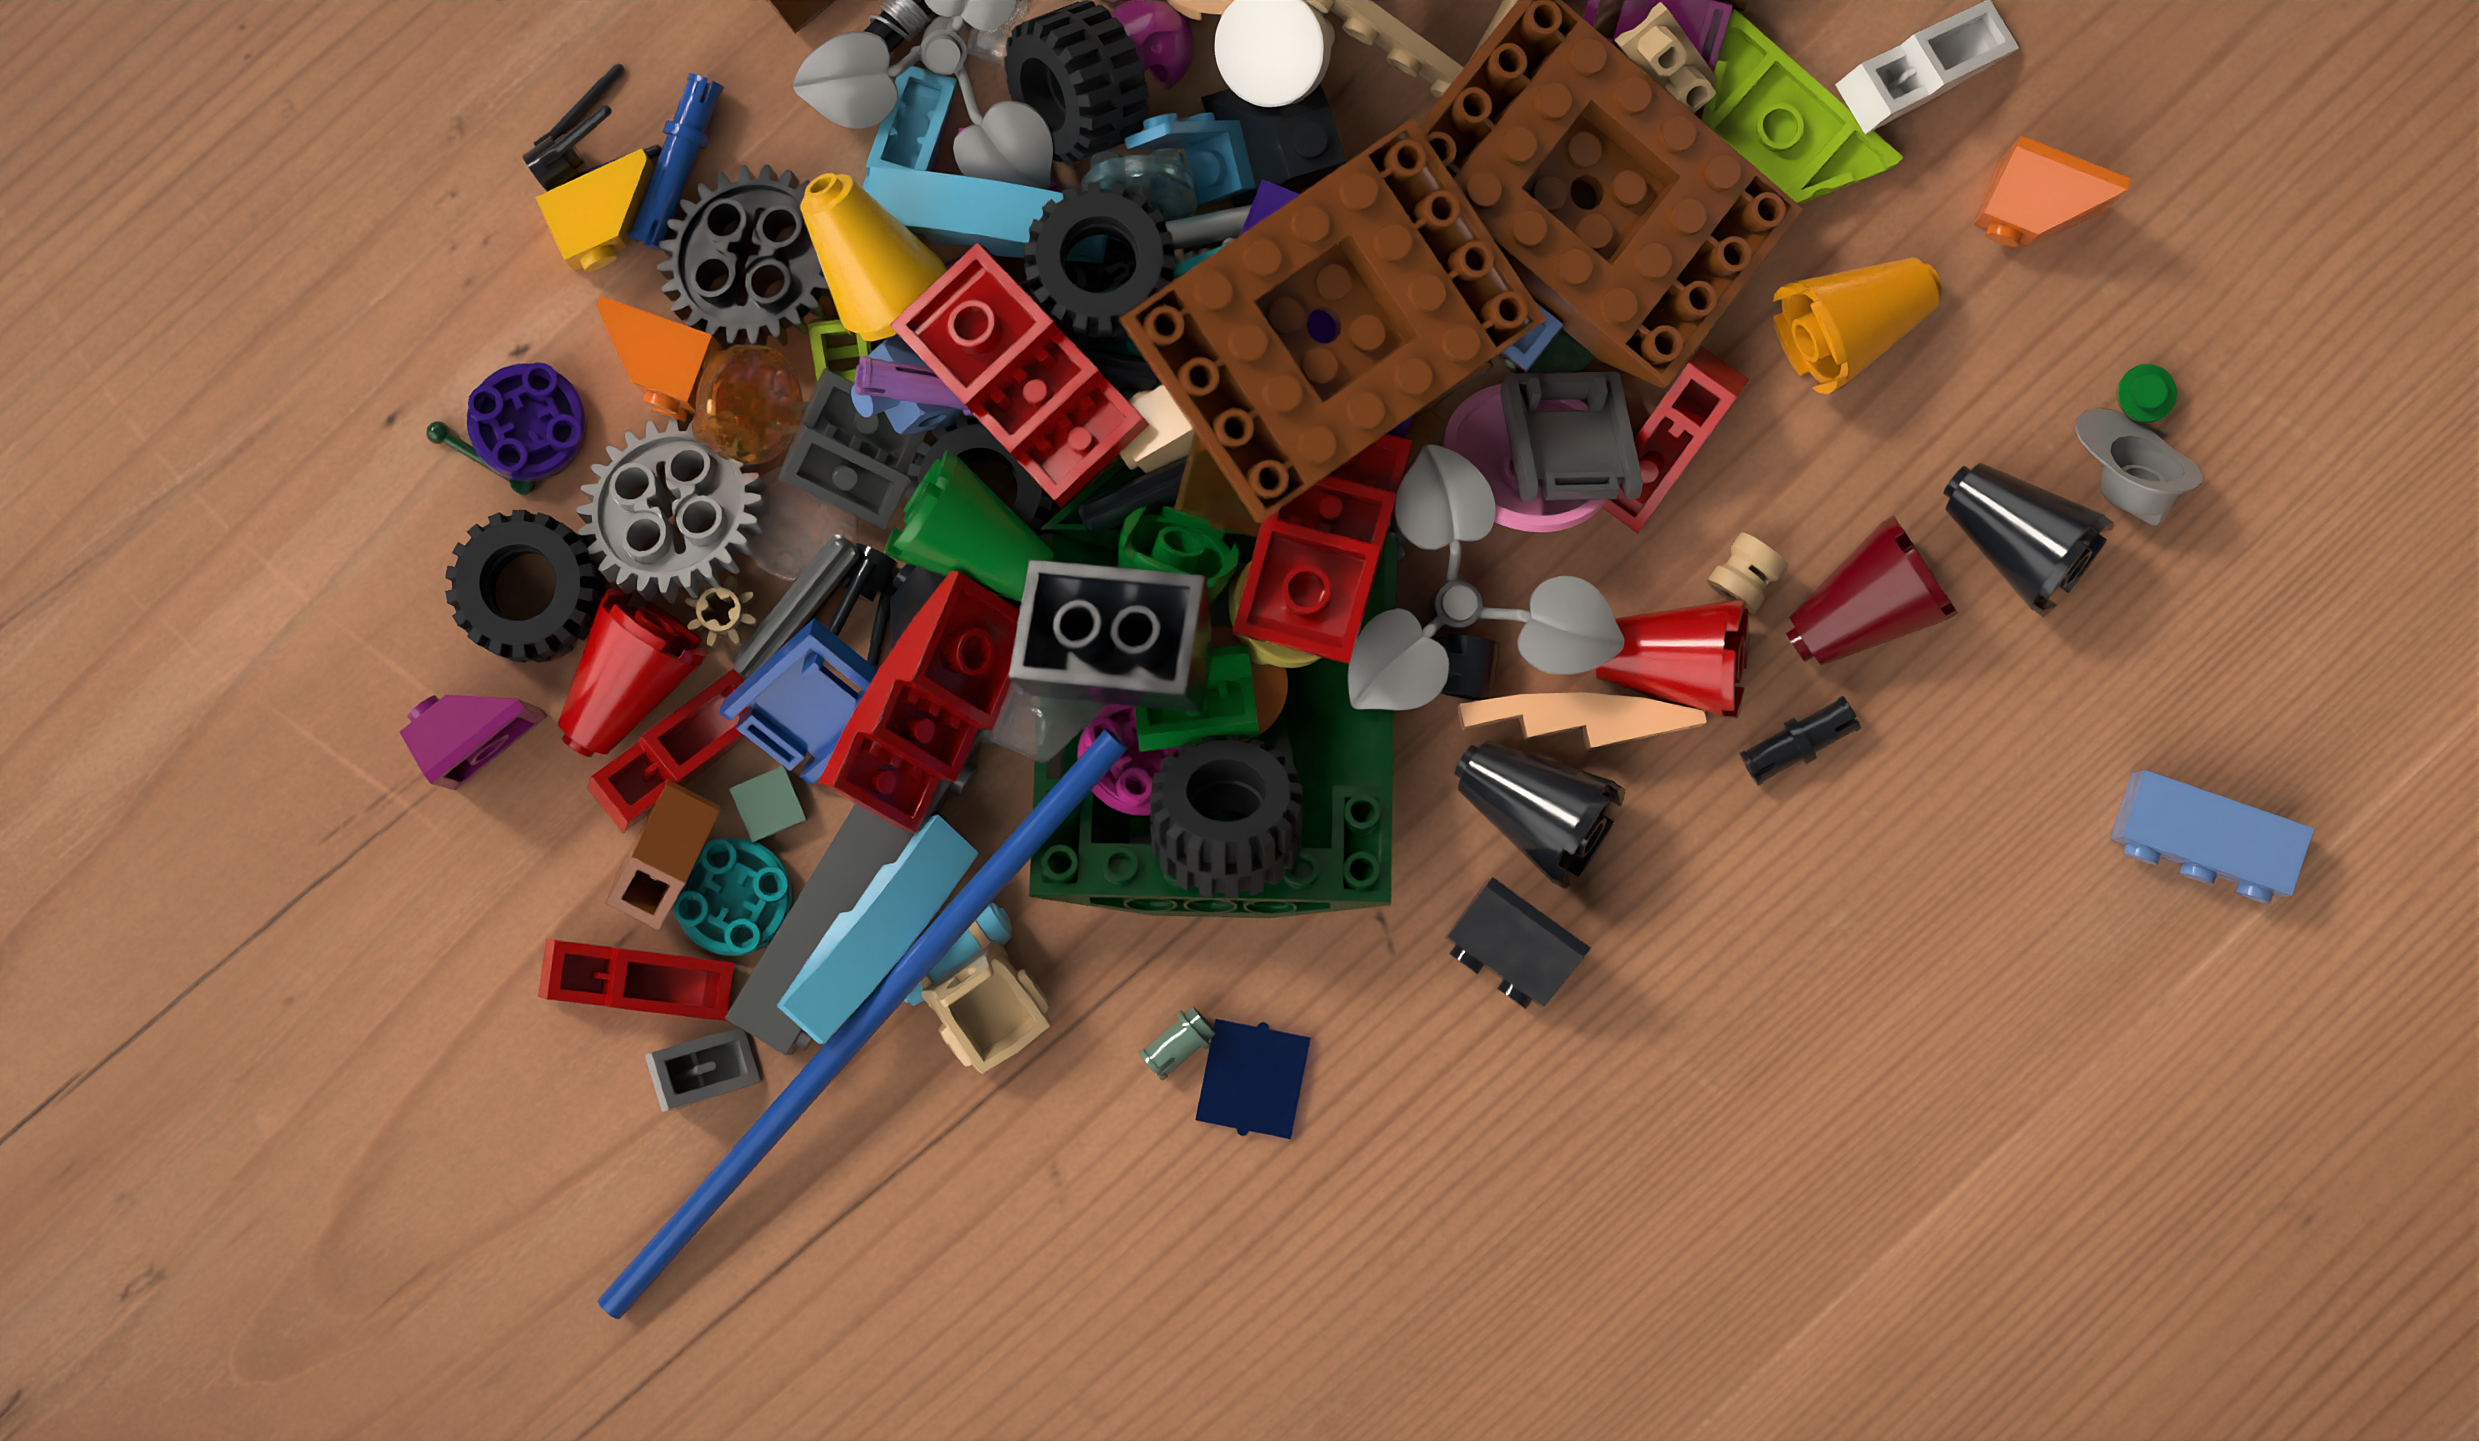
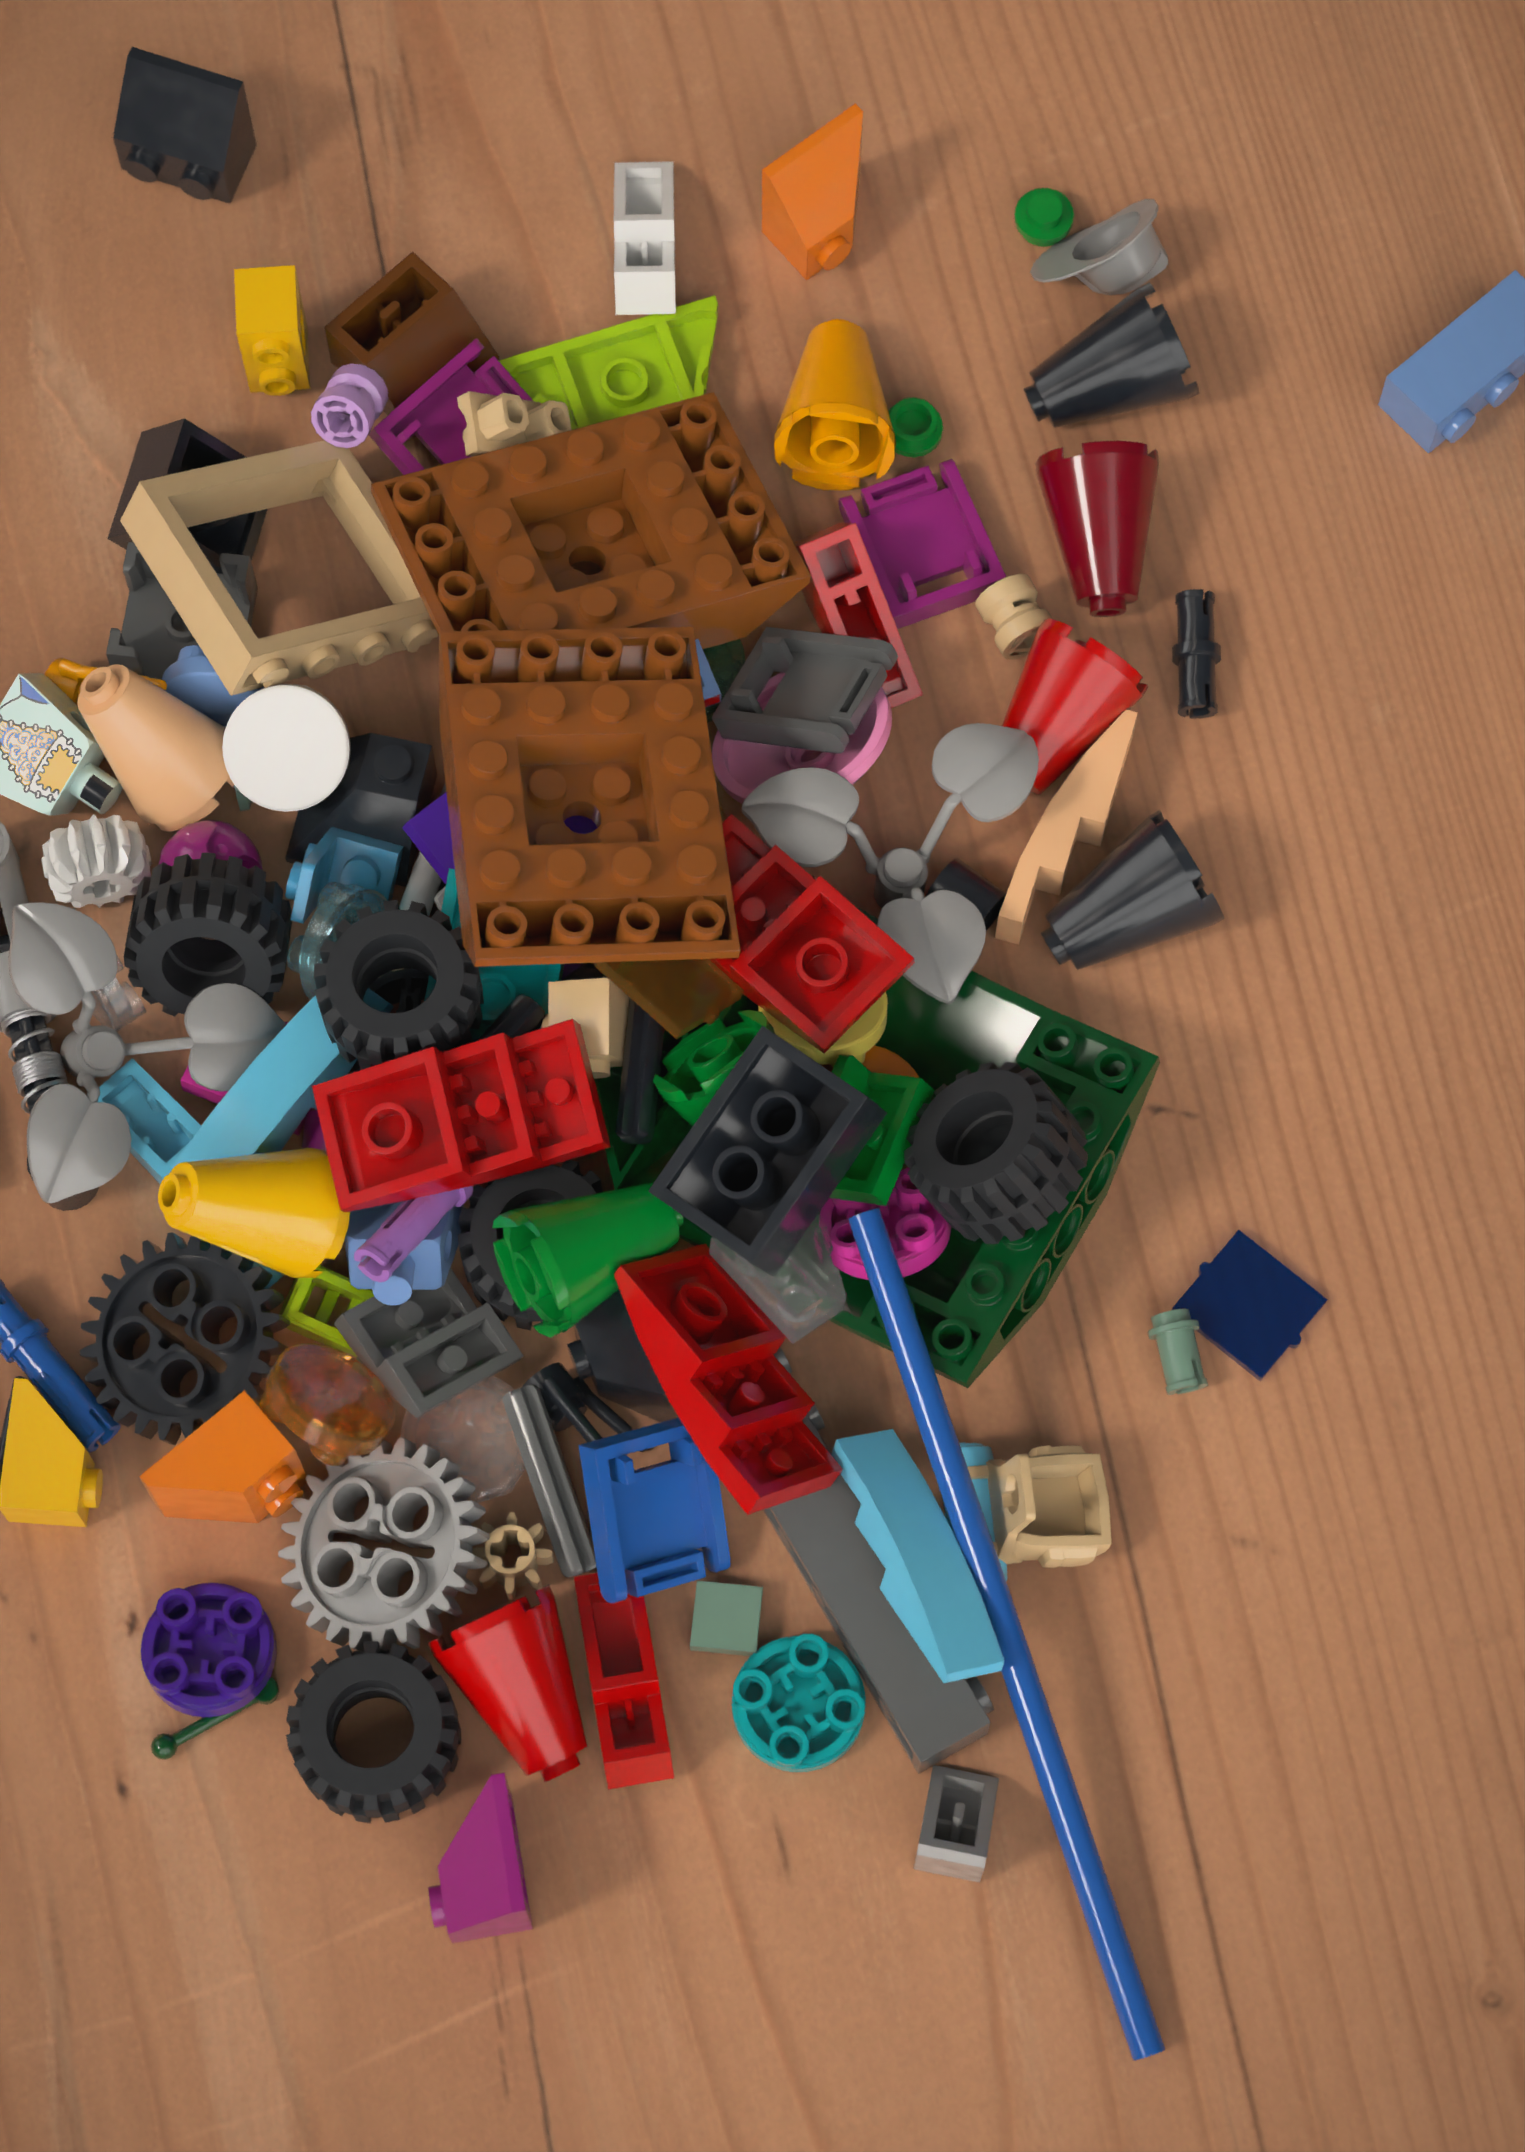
camera: 65 degrees left, 15 degrees down
(635, 980) = (828, 1844): red slope -> none
(663, 855) = (723, 1737): dark orange slope -> none
(1515, 944) = (1252, 984): black slope -> none
(1781, 451) = (921, 537): none -> magenta container
(1878, 392) = (915, 427): none -> green plate

